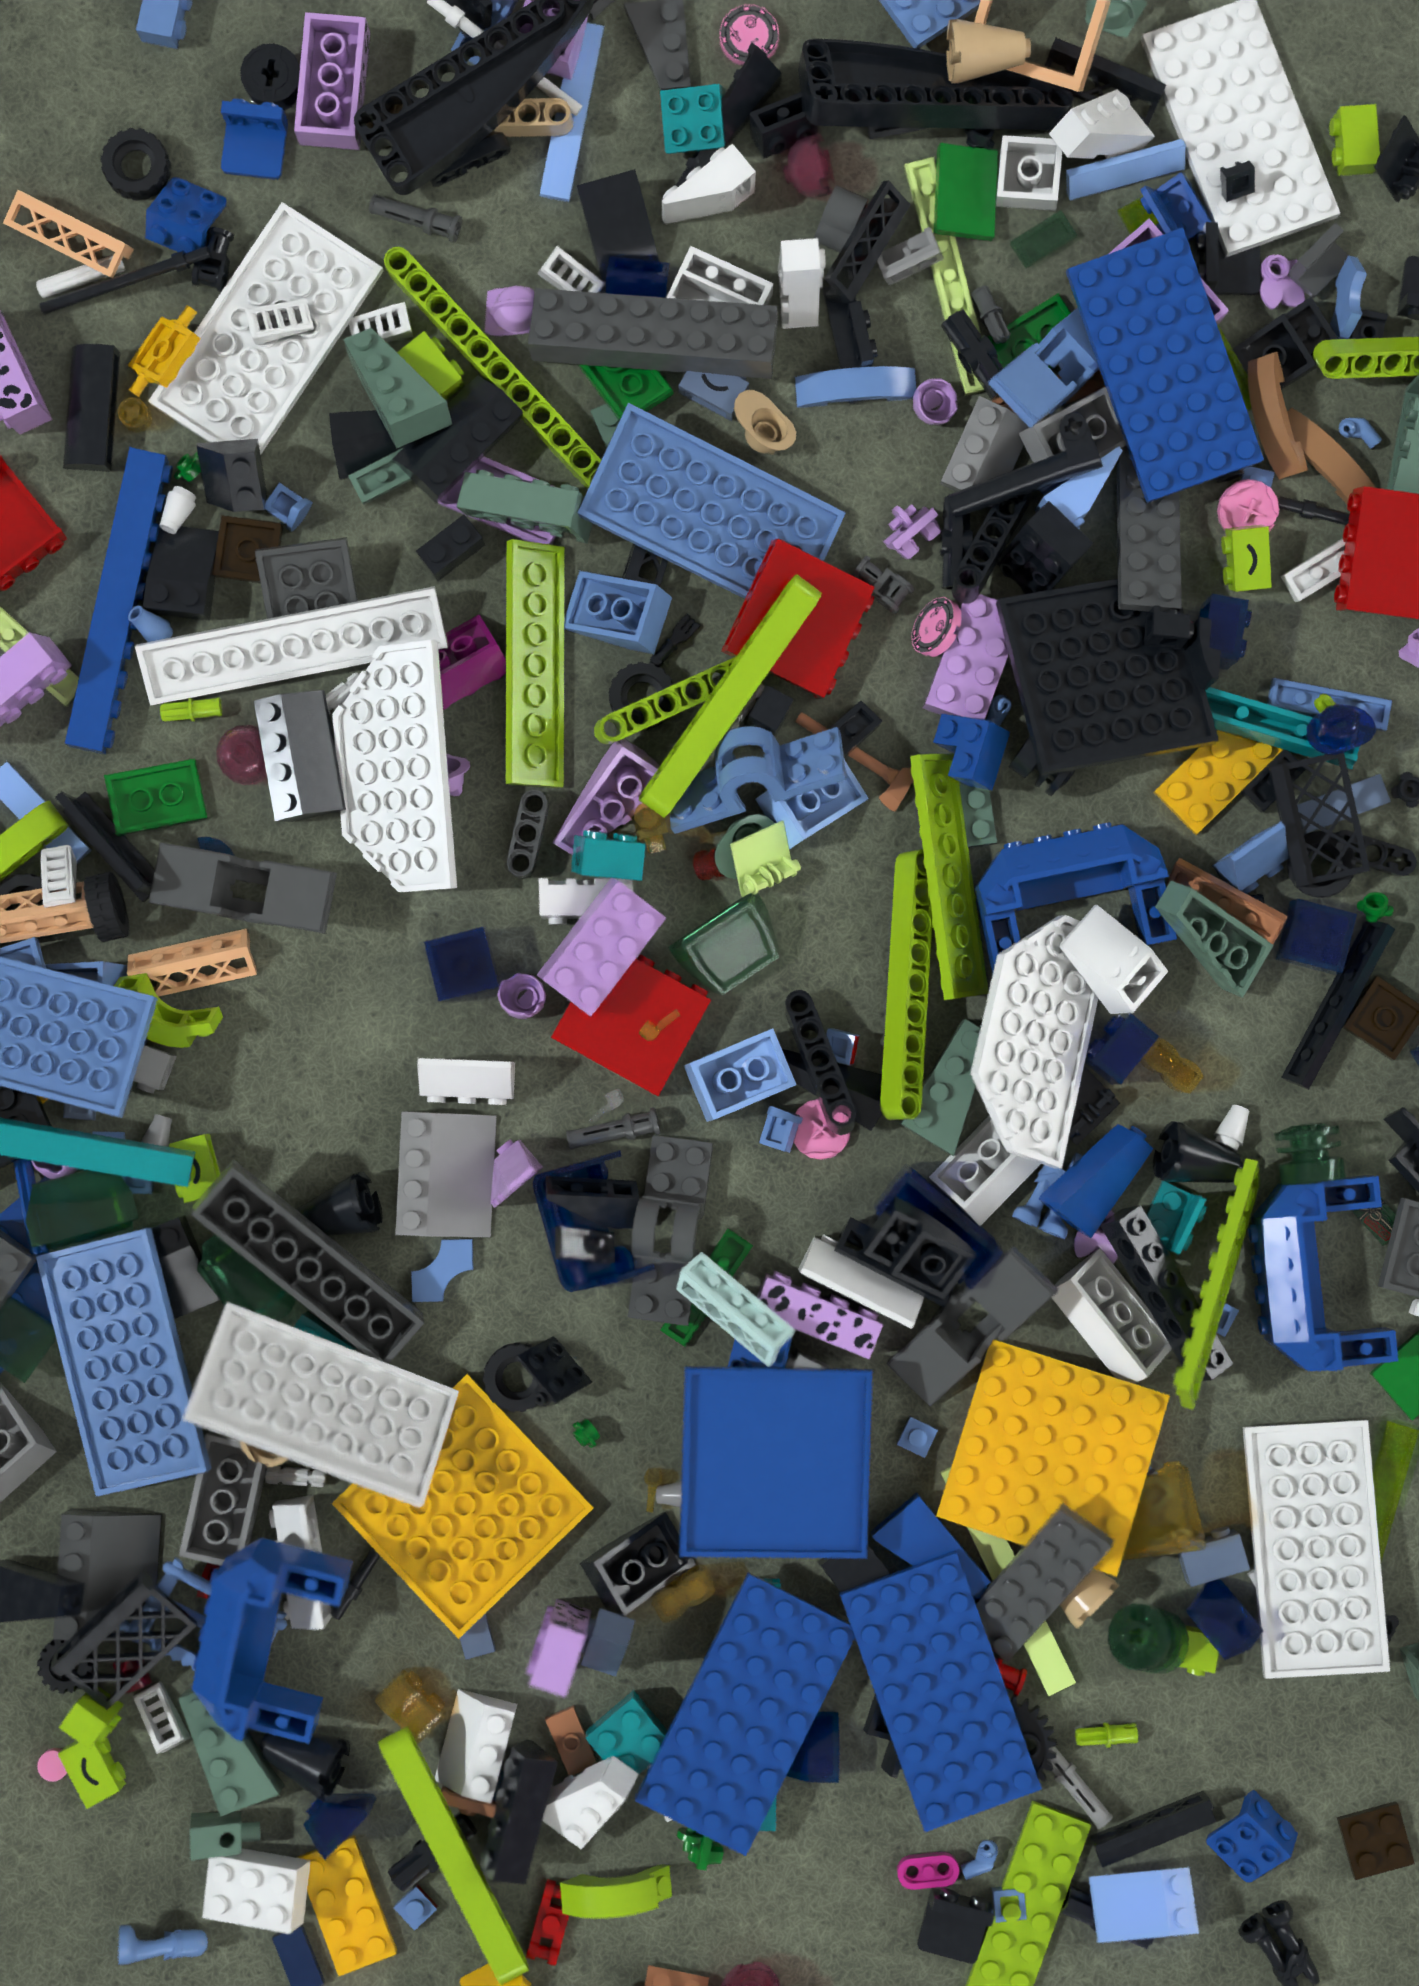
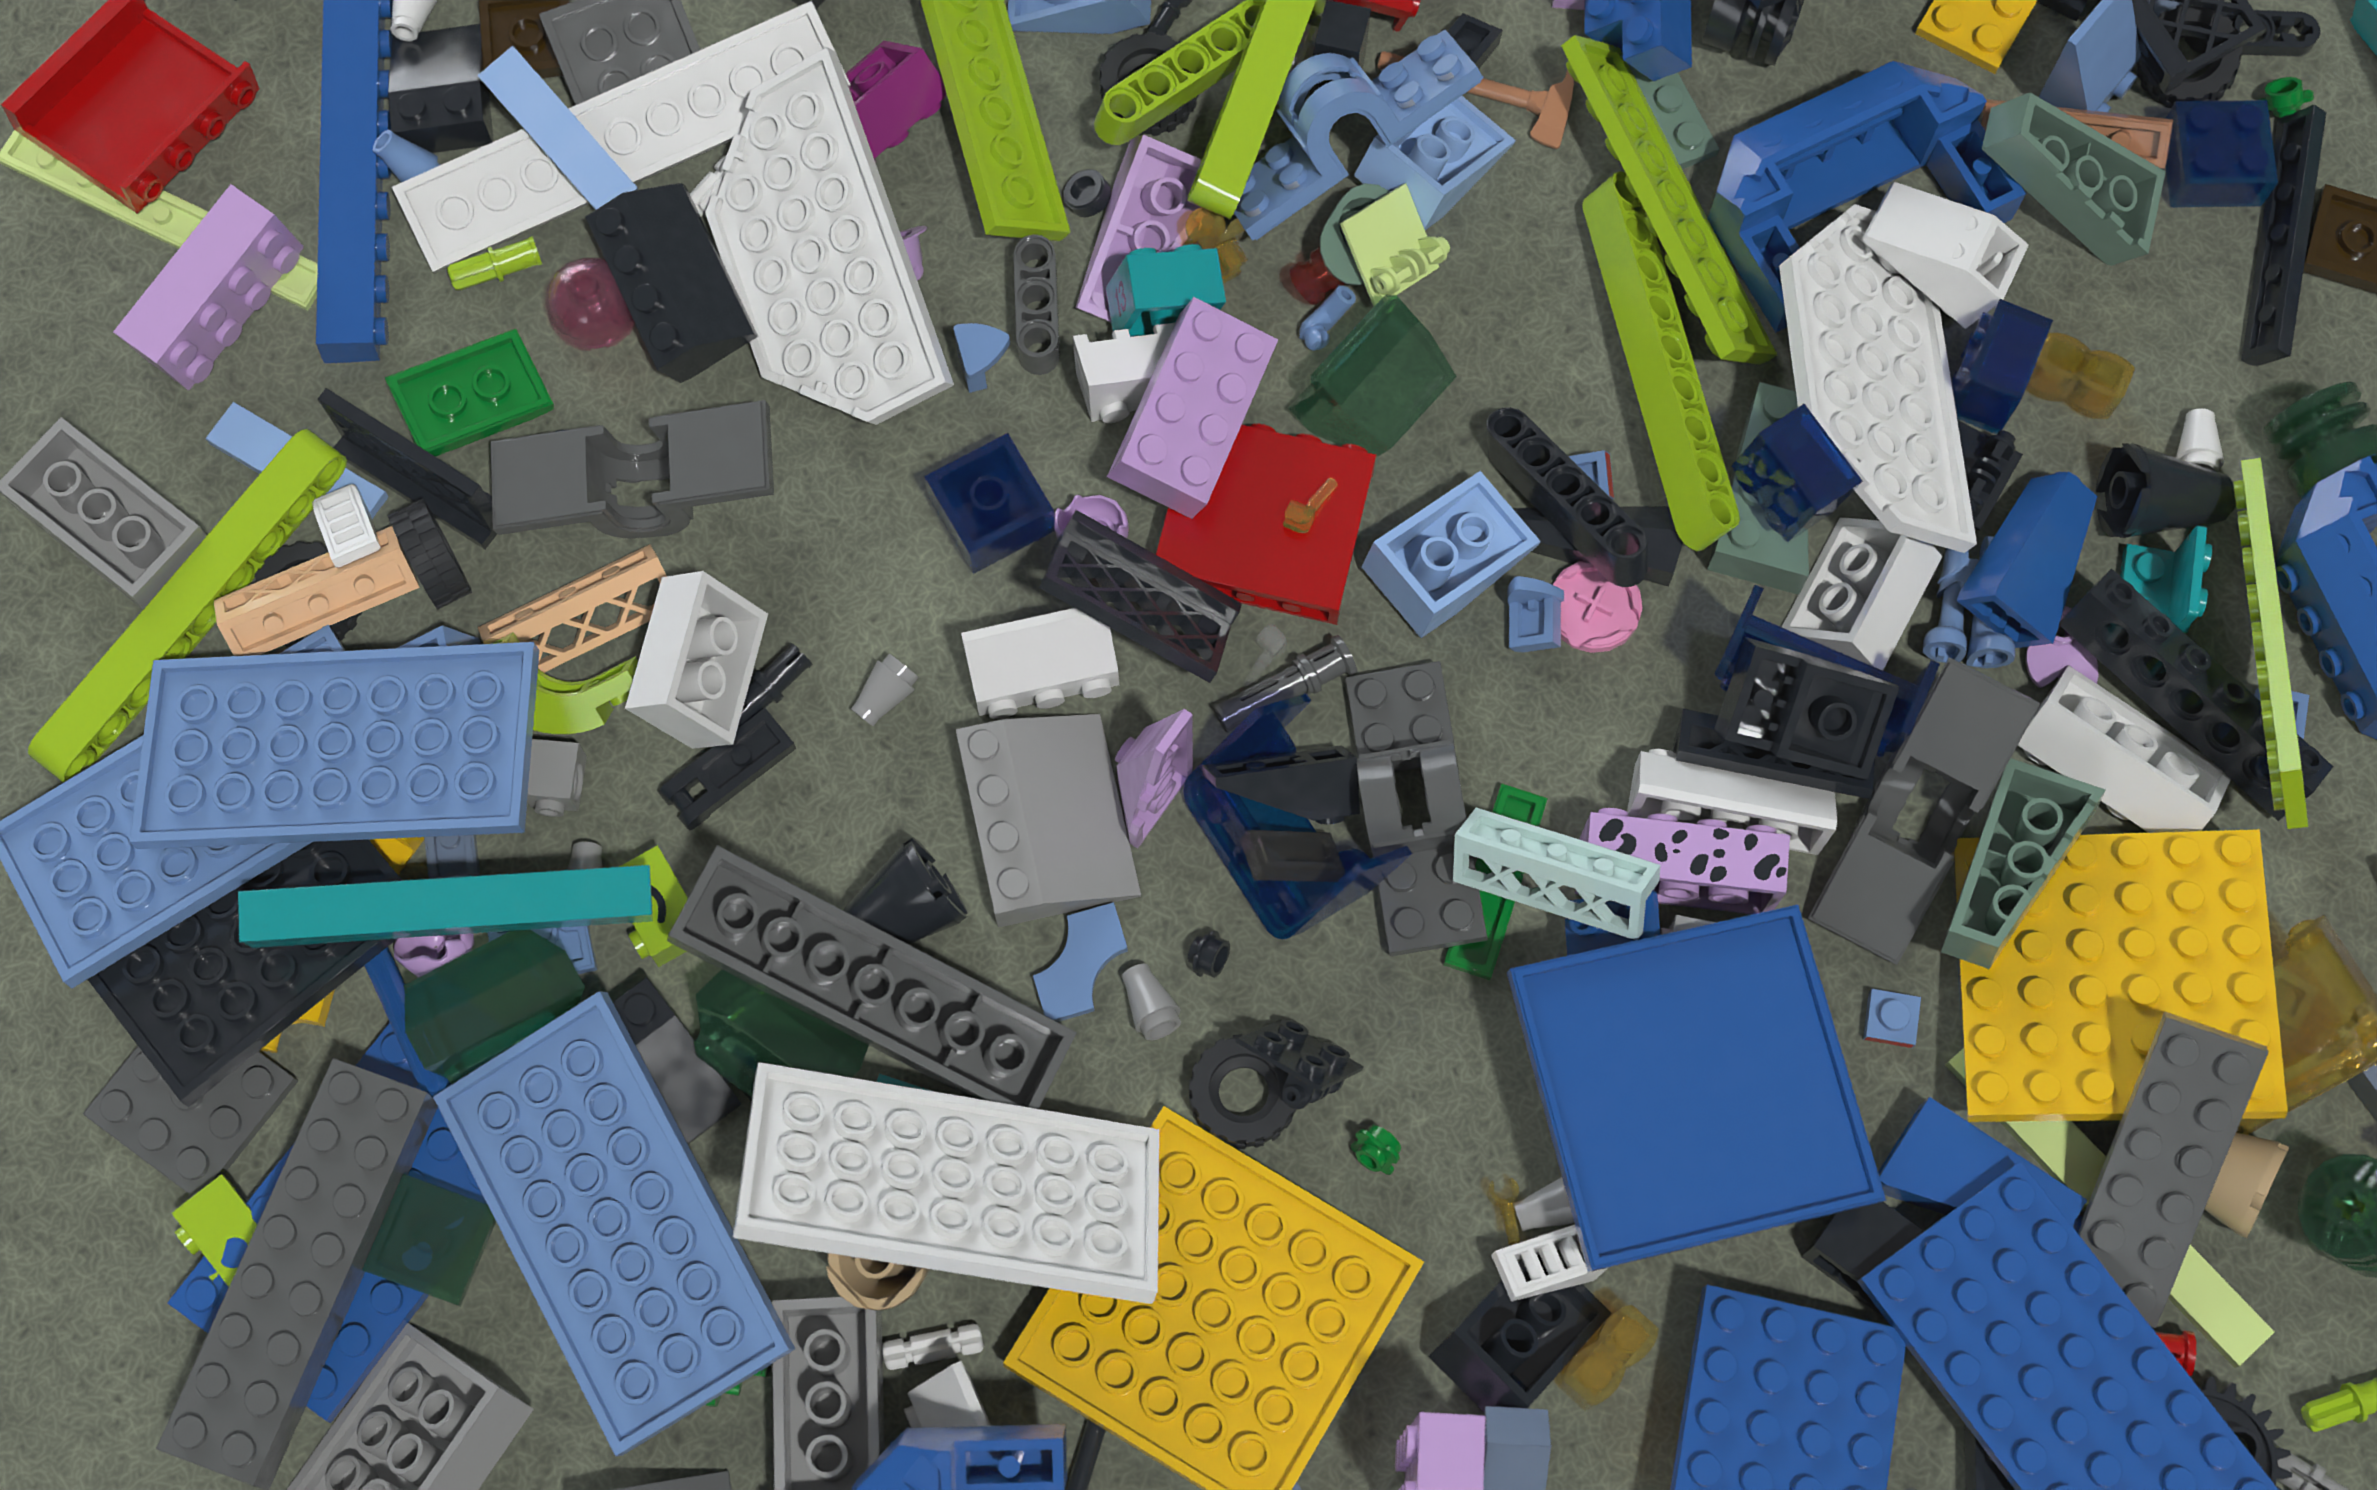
camera: 10 degrees left, 15 degrees down
(248, 638) = (555, 129): none -> light blue tile
(254, 1024) = (697, 660): none -> white brick
(261, 1090) = (727, 769): none -> black plate
(296, 1044) = (773, 681): none -> black pin
(369, 1064) = (884, 689): none -> light grey cone
(476, 1307) = (1151, 1005): none -> light grey cone
(481, 860) = (979, 350): none -> medium blue tile
(520, 1287) = (1208, 954): none -> black plate
(545, 1047) = (1159, 587): none -> black fence
(581, 762) = (1087, 193): none -> black tile
(640, 1530) = (1546, 1245): none -> white slope
(709, 890) = (1315, 327): none -> medium blue arm
(960, 1099) = (1795, 473): none -> clear blue brick
(1020, 1367) = (2021, 846): none -> sand green wedge

